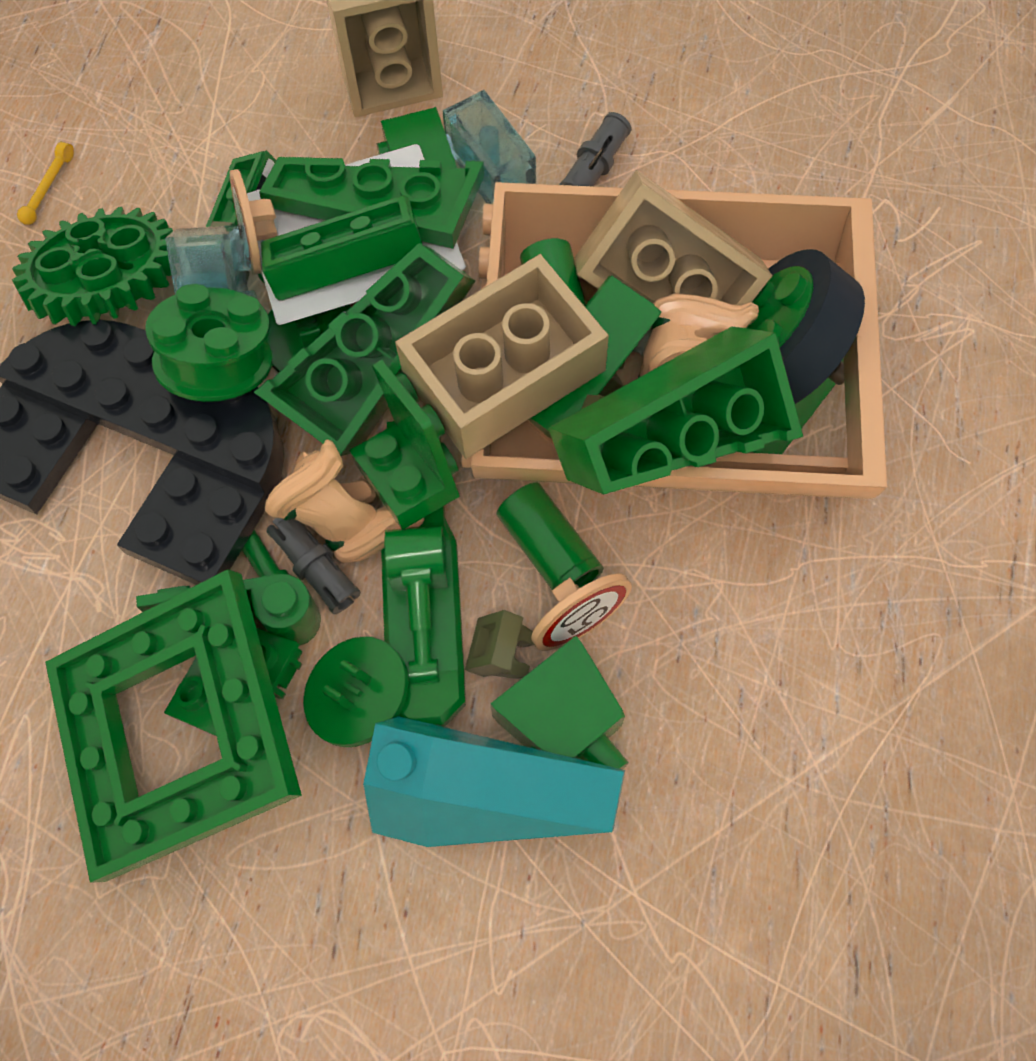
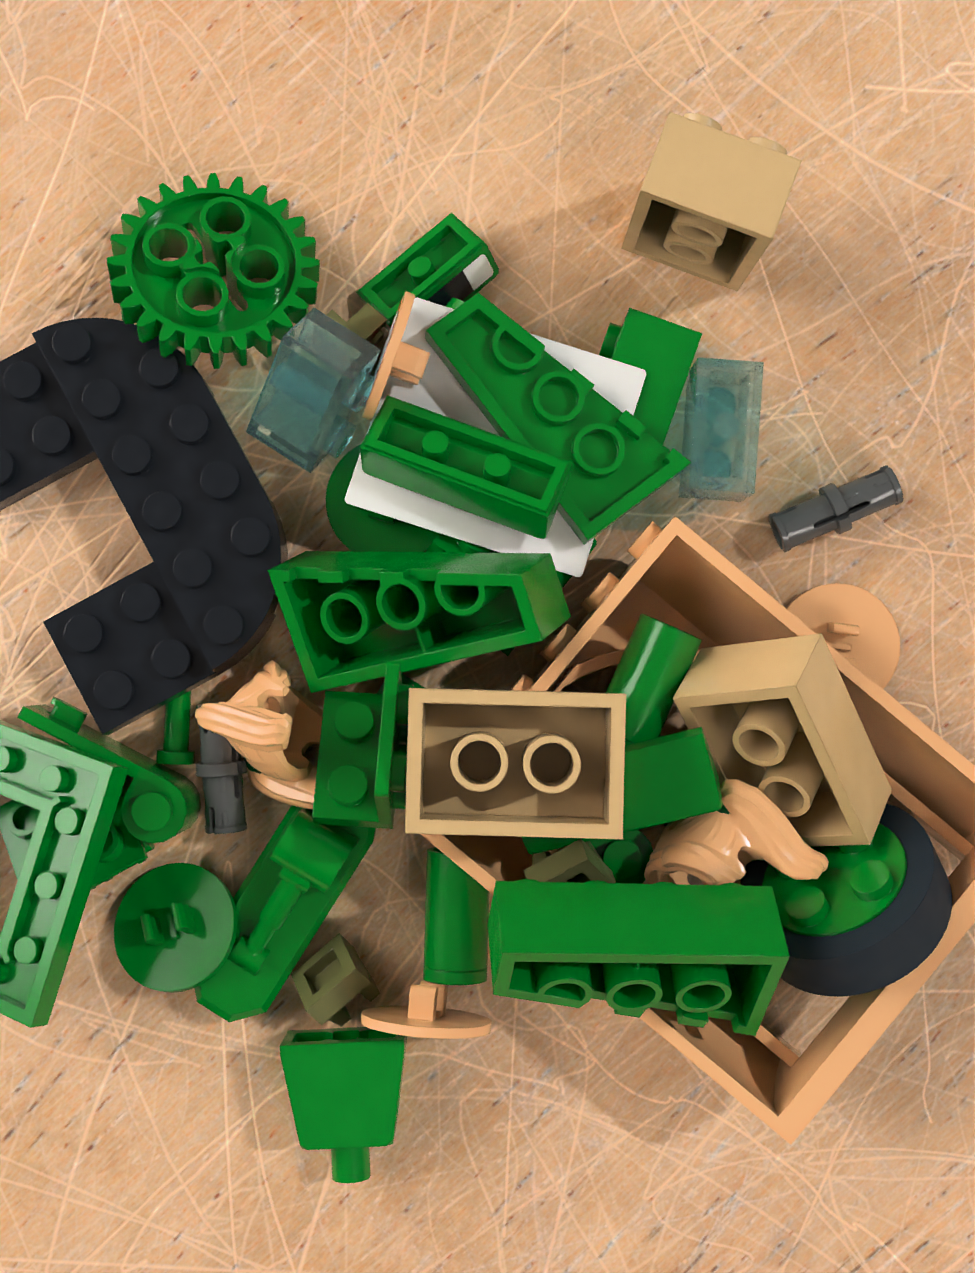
camera: 25 degrees right, 20 degrees up
(63, 153) = (272, 69): yellow hinge -> none
(209, 343) = (264, 448): green wheel -> none
(469, 789) = (214, 1103): teal wedge -> none

